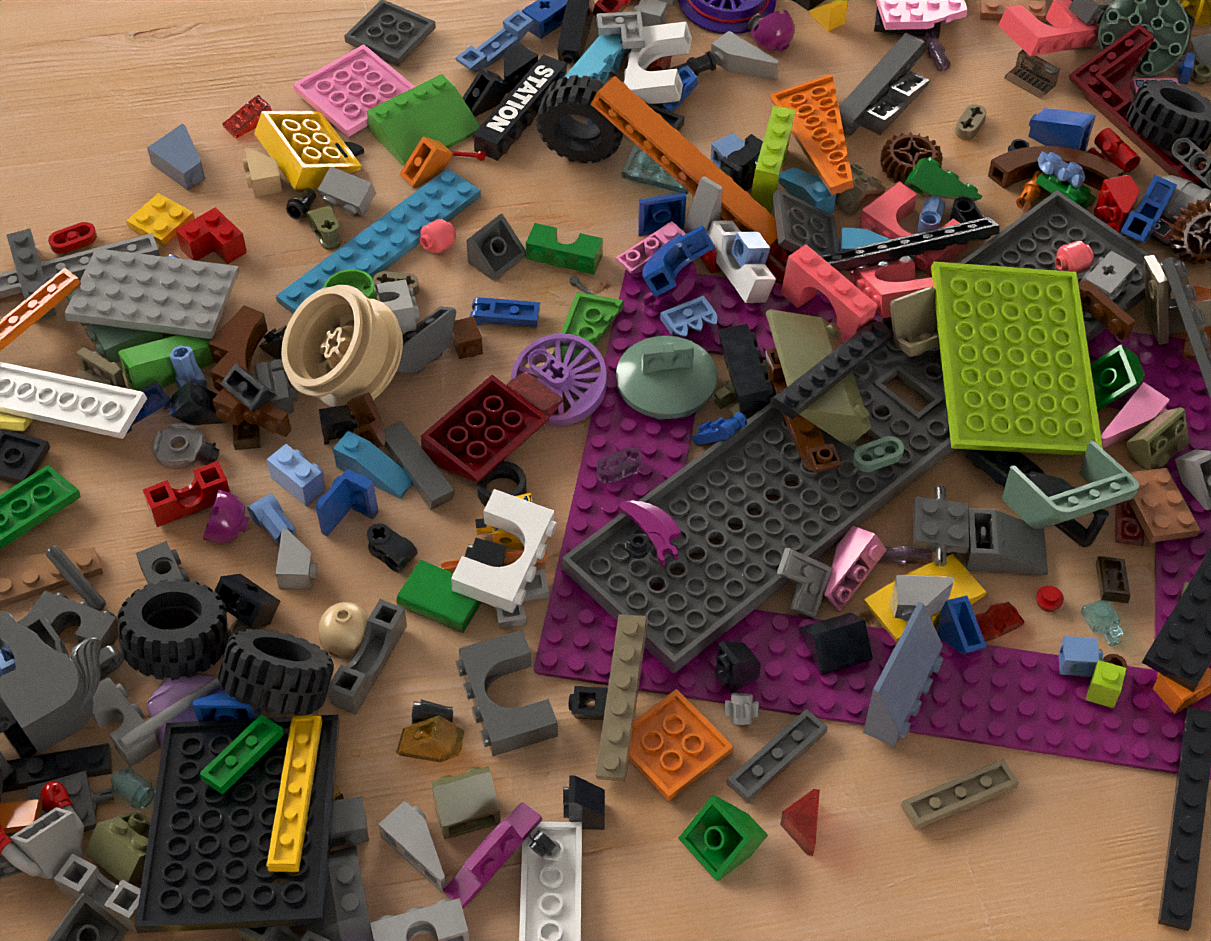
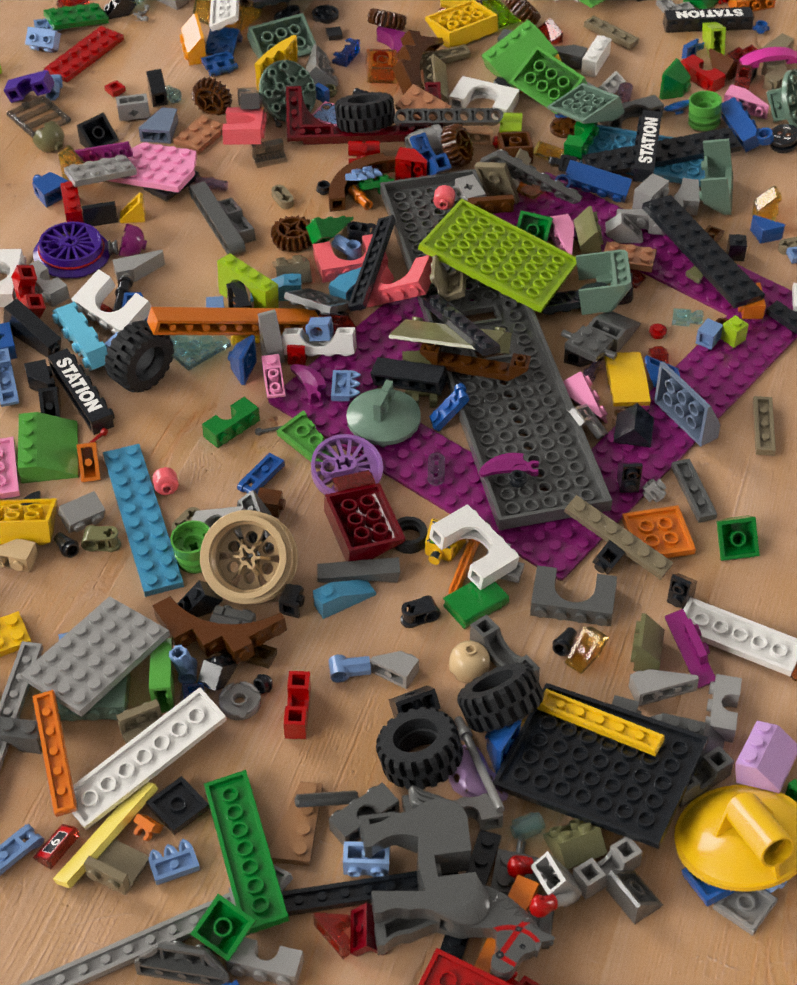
camera: 60 degrees left, 5 degrees down
(160, 560) = (346, 753): dark grey brick -> none
(209, 234) = (56, 603): red brick -> none
(225, 519) = (332, 692): magenta cylinder -> none
(241, 754) = (553, 741): green plate -> none
(247, 388) = (241, 626): black slope -> none
(296, 474) = (322, 638): light blue brick -> none
(346, 493) = (369, 609): blue bracket -> none
(368, 418) = (307, 577): reddish brown slope -> none
(487, 552) = (466, 558): black brick -> none
(494, 248) = (202, 457): dark grey slope -> none
(541, 844) = (700, 617): black plate -> none
(624, 23) = (72, 298): light grey plate -> none
(670, 258) = (291, 367): blue arch -> none
(801, 821) = (746, 497): clear red slope -> none
(809, 272) = (370, 304): coral arch -> none
(819, 130) = (206, 250): orange wing -> none
(876, 455) = (525, 342): sand green plate -> none
(910, 590) = (642, 371): light grey slope -> none
(1062, 128) = (328, 160): blue slope -> none
(1113, 579) = (663, 299): dark brown plate -> none

